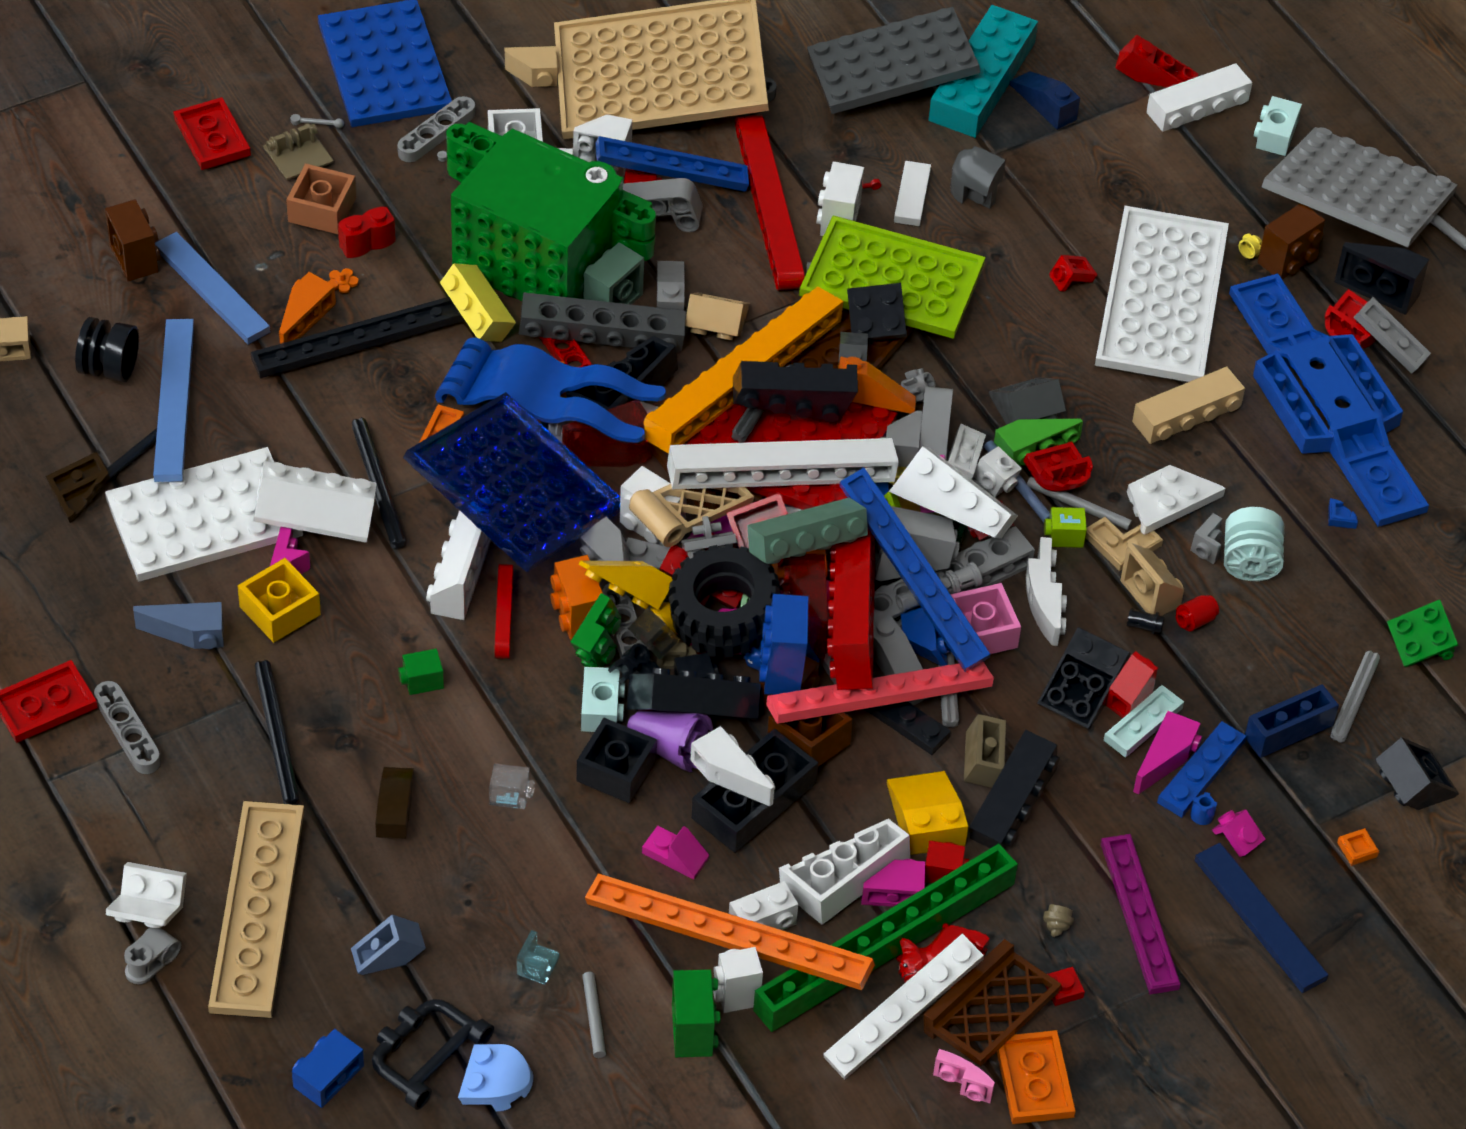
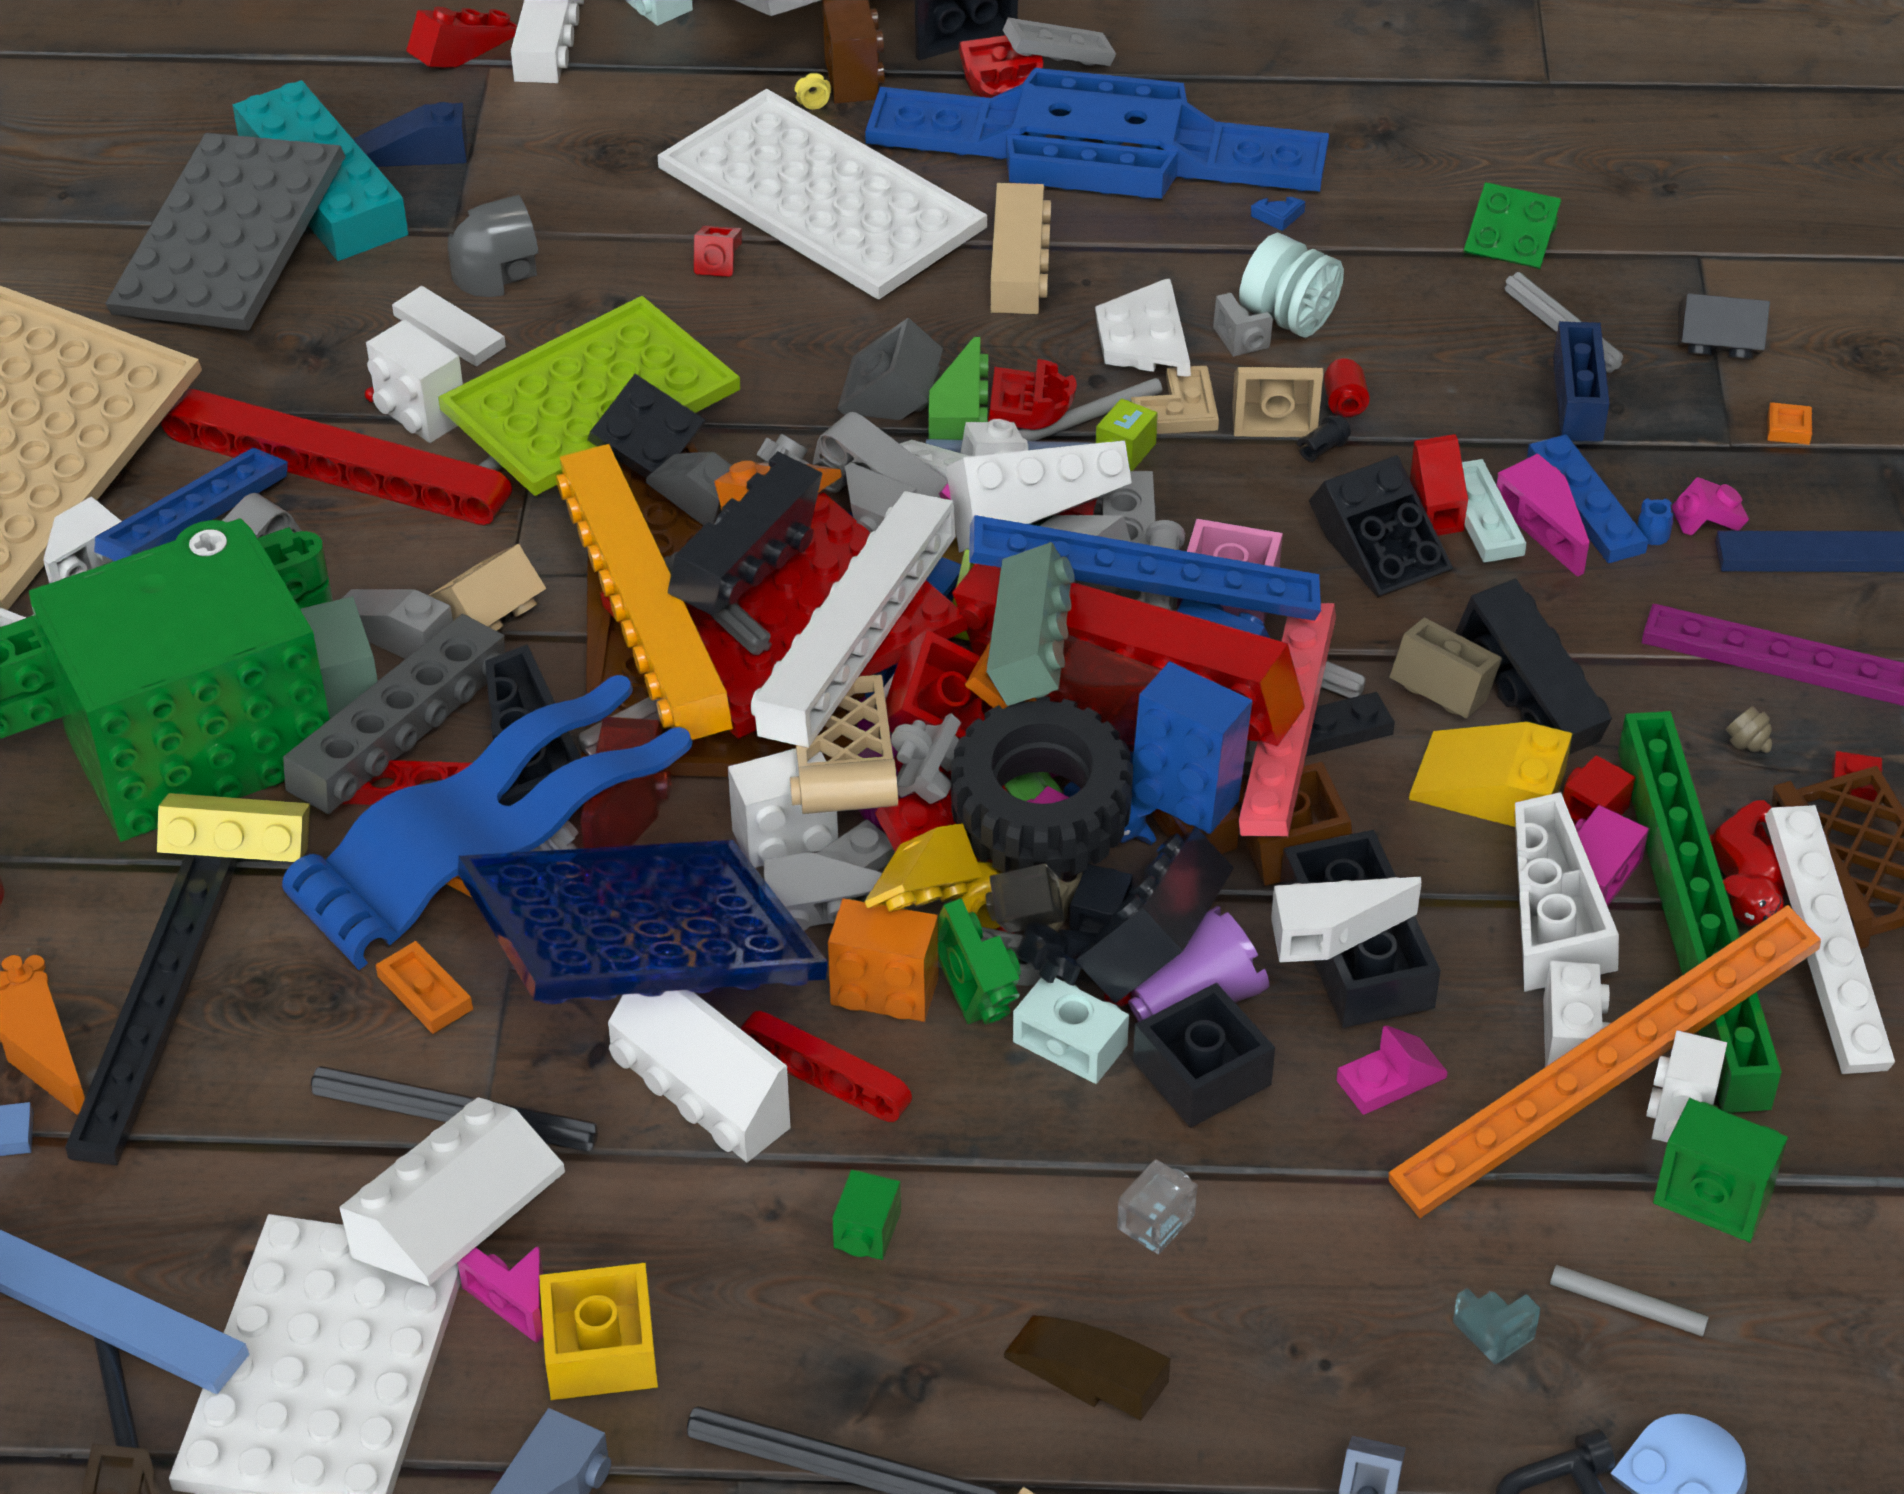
camera: 55 degrees left, 5 degrees down
(1044, 594) = (1231, 500): white slope -> none

